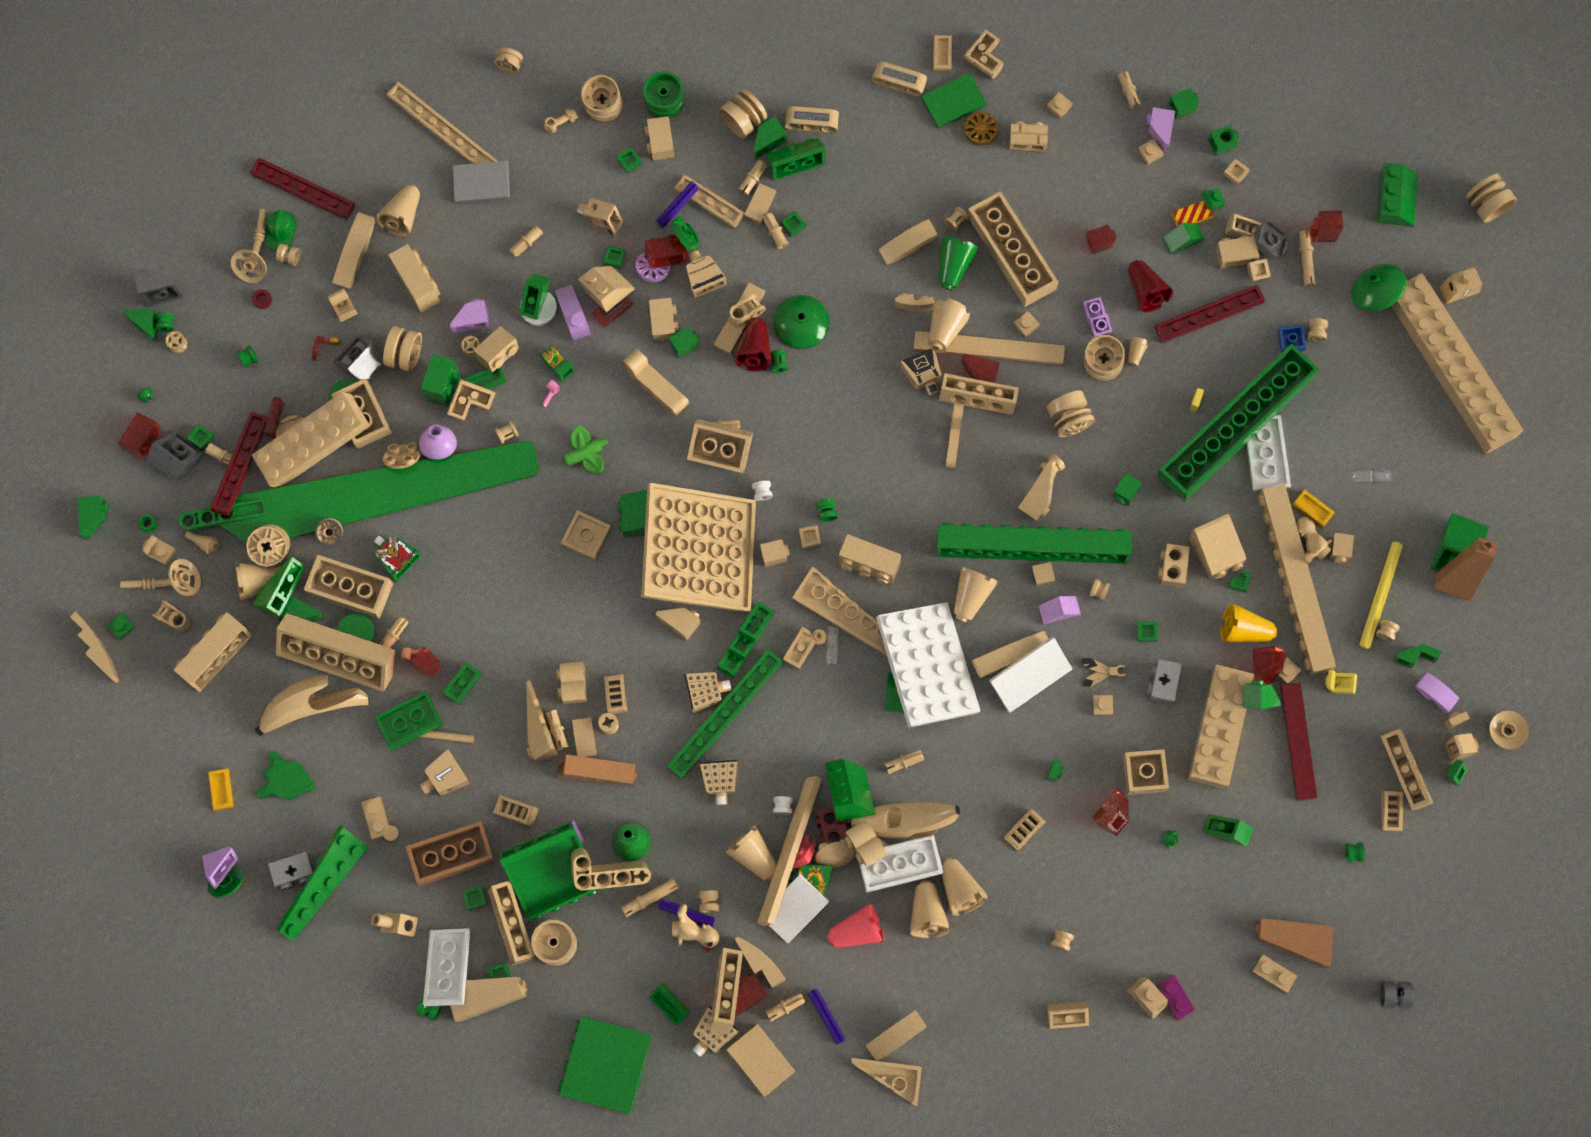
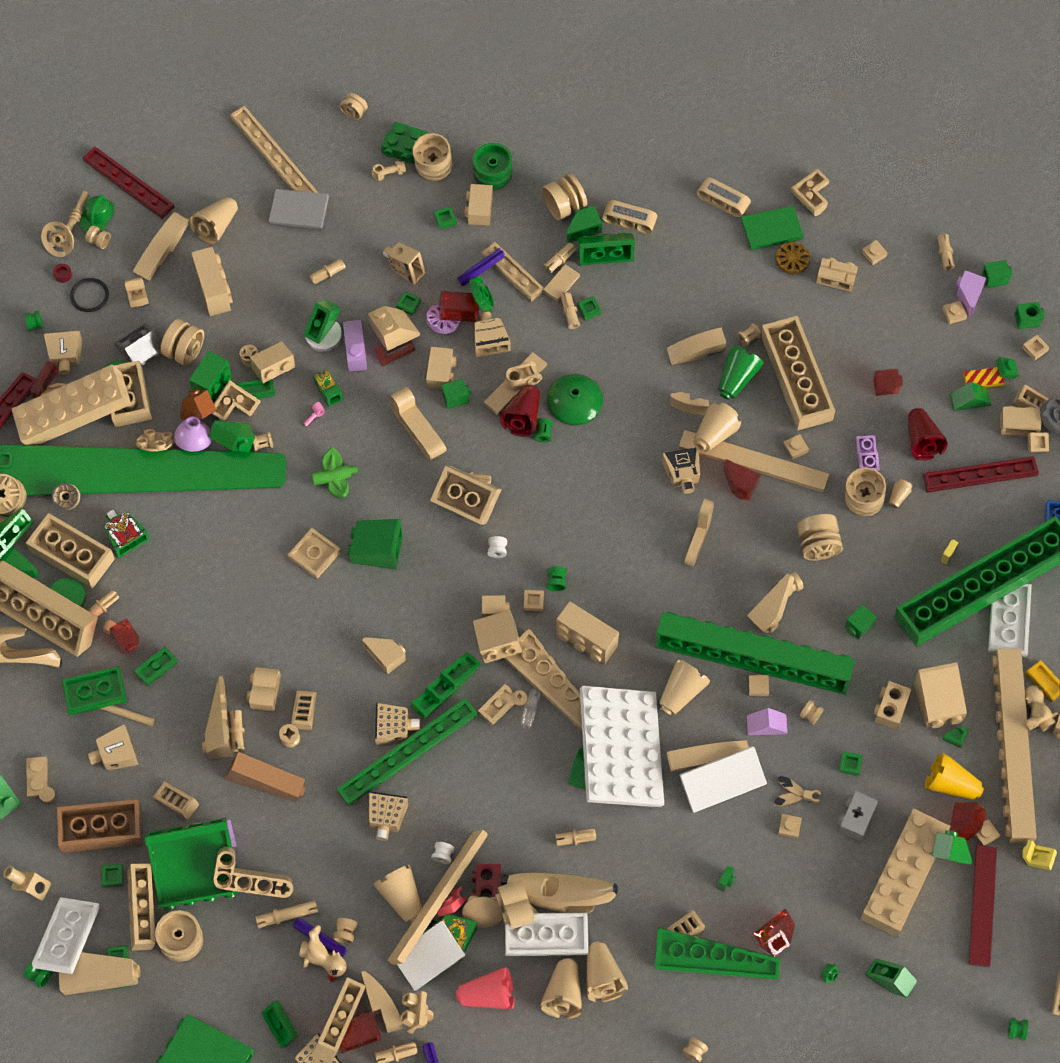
camera: 10 degrees right, 10 degrees down
(286, 380) = (64, 349): none -> tan torso
(300, 331) = (89, 280): none -> black tyre
(334, 341) = (118, 323): clear red piece -> none
(435, 412) = (197, 405): none -> dark orange slope
(471, 317) = (256, 329): lavender slope -> none
(477, 434) = (232, 435): none -> green slope
(566, 87) = (400, 141): none -> green plate
(584, 737) = (263, 743): tan tile -> none
(633, 847) = (282, 854): green cone -> none
(698, 548) = (420, 585): tan plate -> none
(784, 582) = (497, 636): none -> tan piece
(796, 963) = (418, 1011): none -> tan hips
(849, 790) = (512, 850): green slope -> none
(942, 53) = (771, 183): tan tile -> none
(979, 394) = (733, 500): tan brick -> none
(1051, 849) = (695, 954): none -> green wing
(1145, 772) = (818, 900): tan brick -> none

